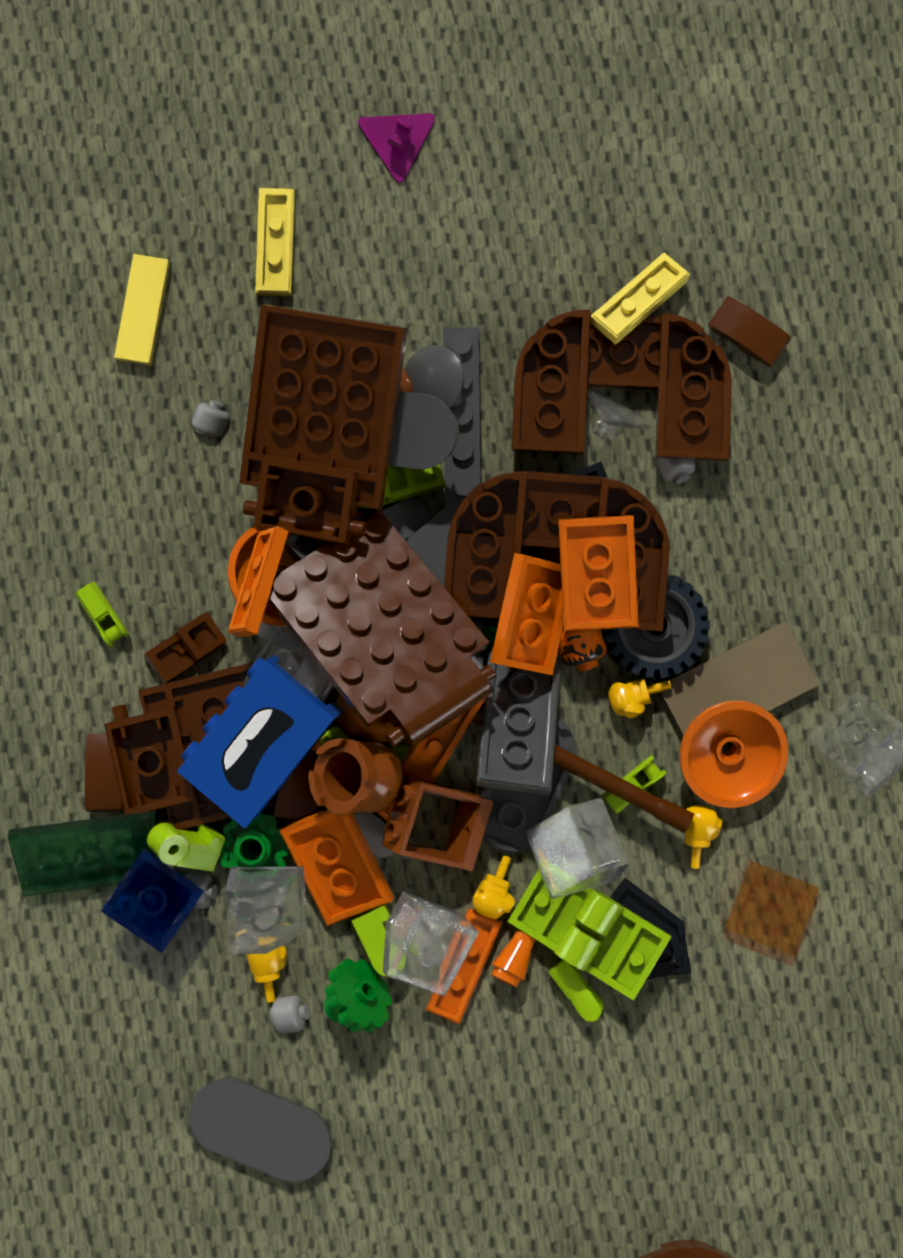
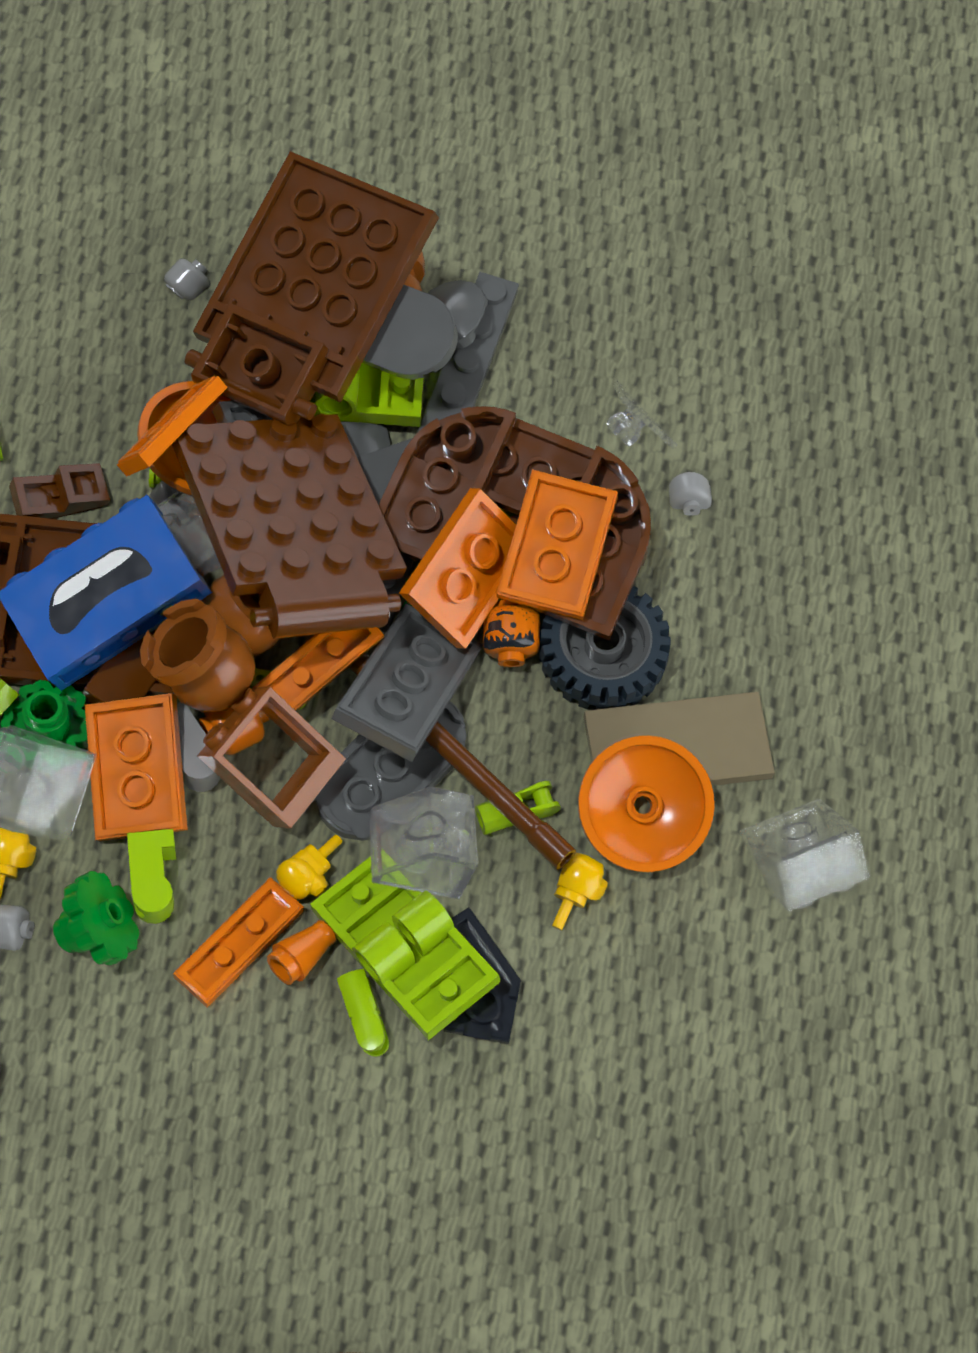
camera: 10 degrees right, 20 degrees down
(142, 309) = (158, 151): light yellow tile -> none
(275, 242) = (335, 123): light yellow tile -> none
(397, 139) = (501, 84): magenta piece -> none
(426, 943) = (204, 884): clear slope -> none
(632, 697) = (548, 712): yellow piece -> none
(639, 298) = (707, 310): light yellow tile -> none
(658, 354) = (622, 340): reddish brown plate -> none
(750, 331) = (821, 384): reddish brown slope -> none
(771, 908) = (632, 1004): clear orange tile -> none

